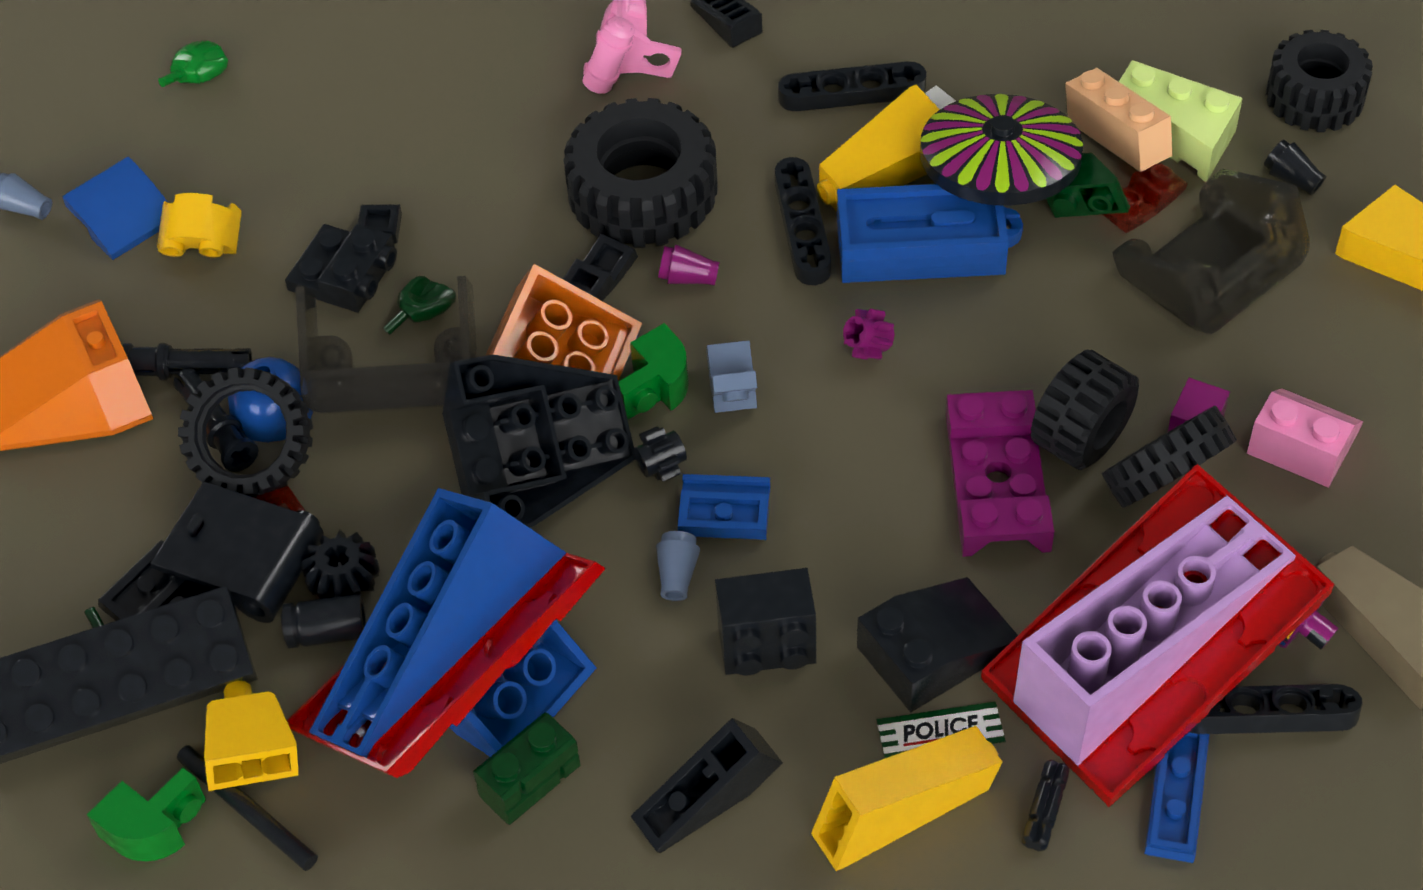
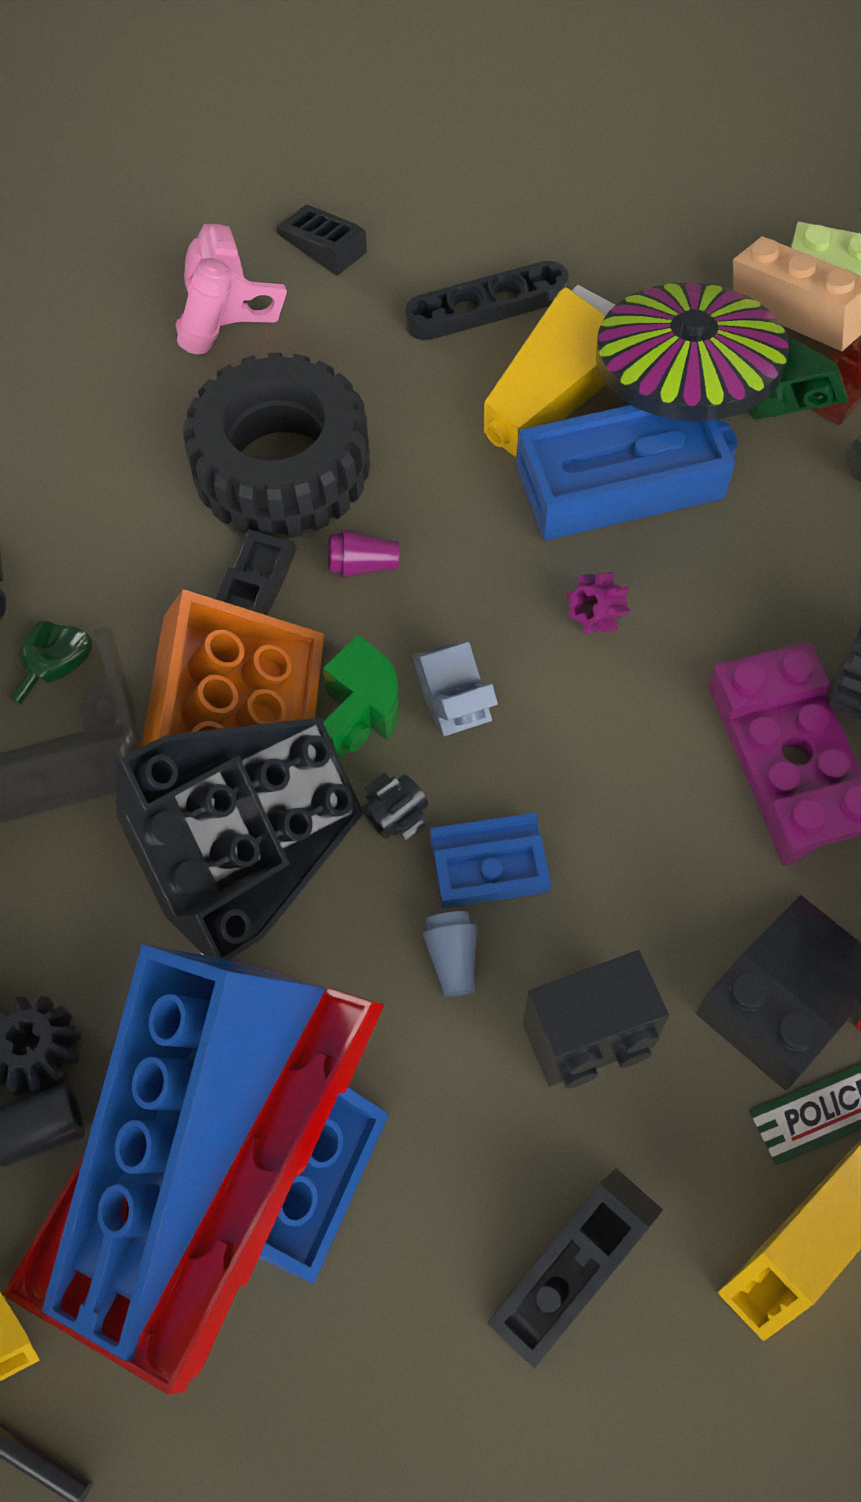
camera: 15 degrees left, 10 degrees up
(527, 768) = (341, 1292): dark green brick -> none
(801, 220) = (482, 469): black beam -> none

